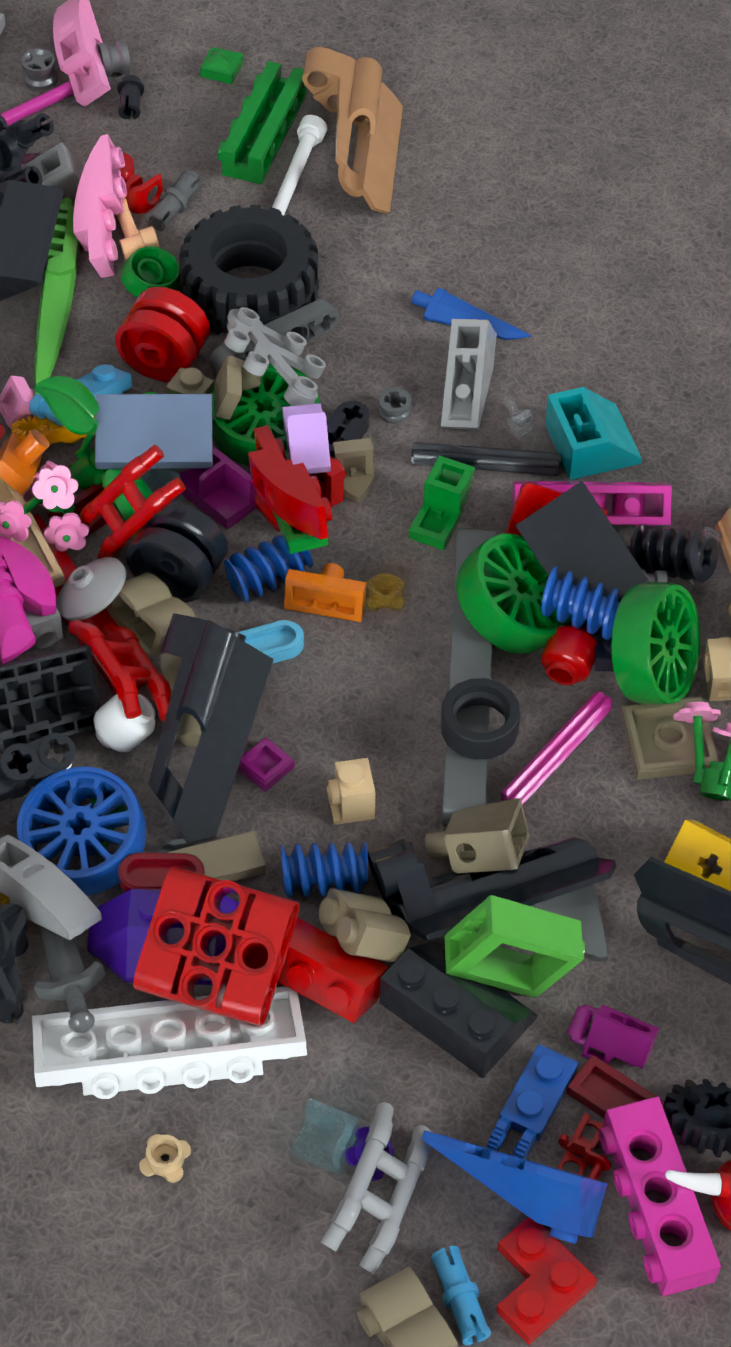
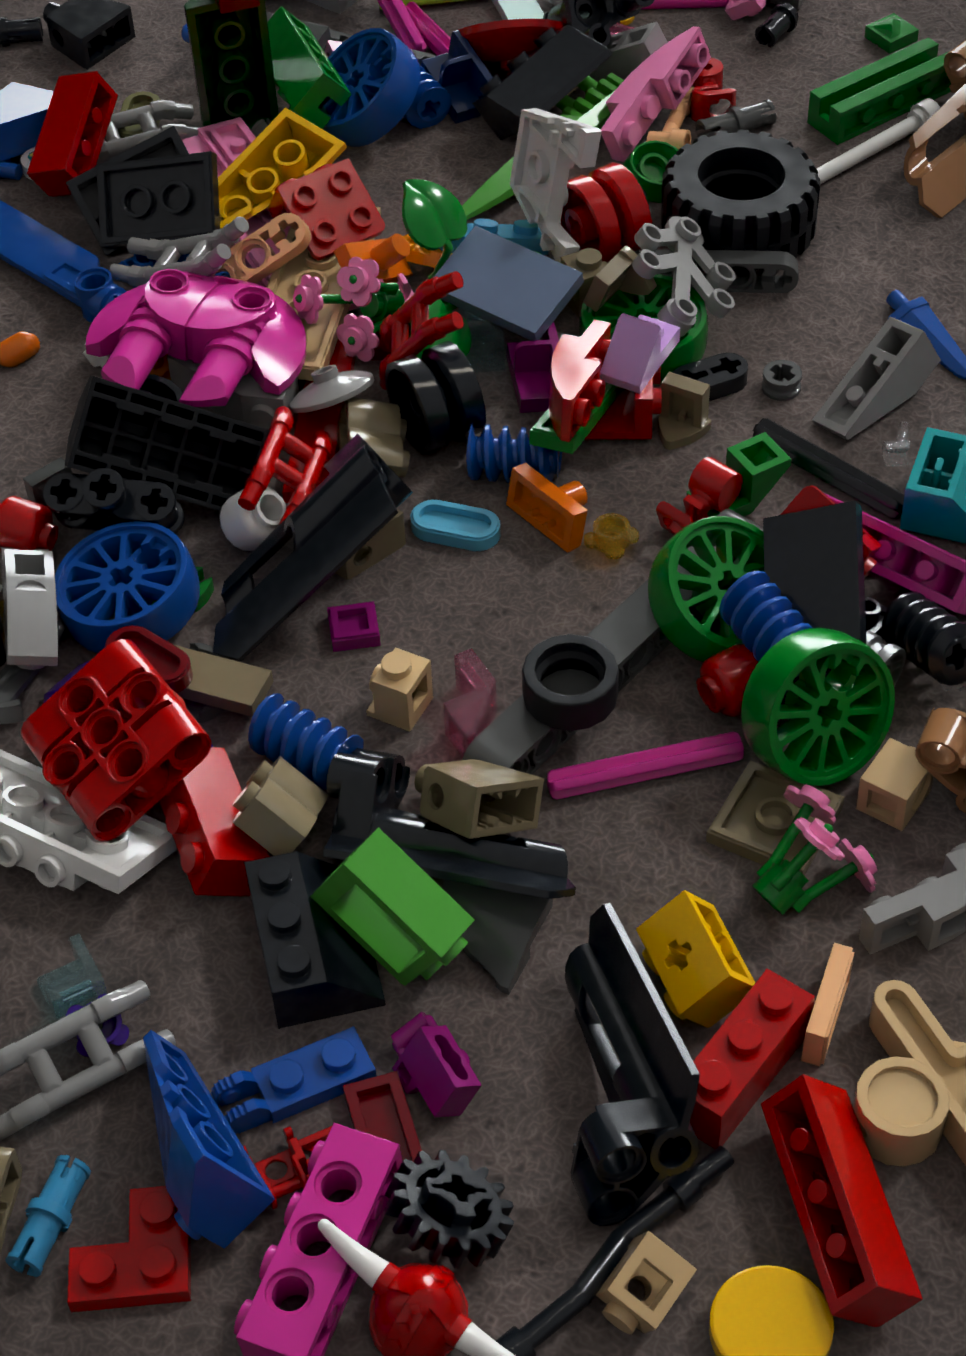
camera: 40 degrees right, 5 degrees down
(107, 320) = (540, 171): none -> white wing
(420, 786) = (476, 707): none -> clear pink slope
(431, 521) = (711, 487): none -> red leg

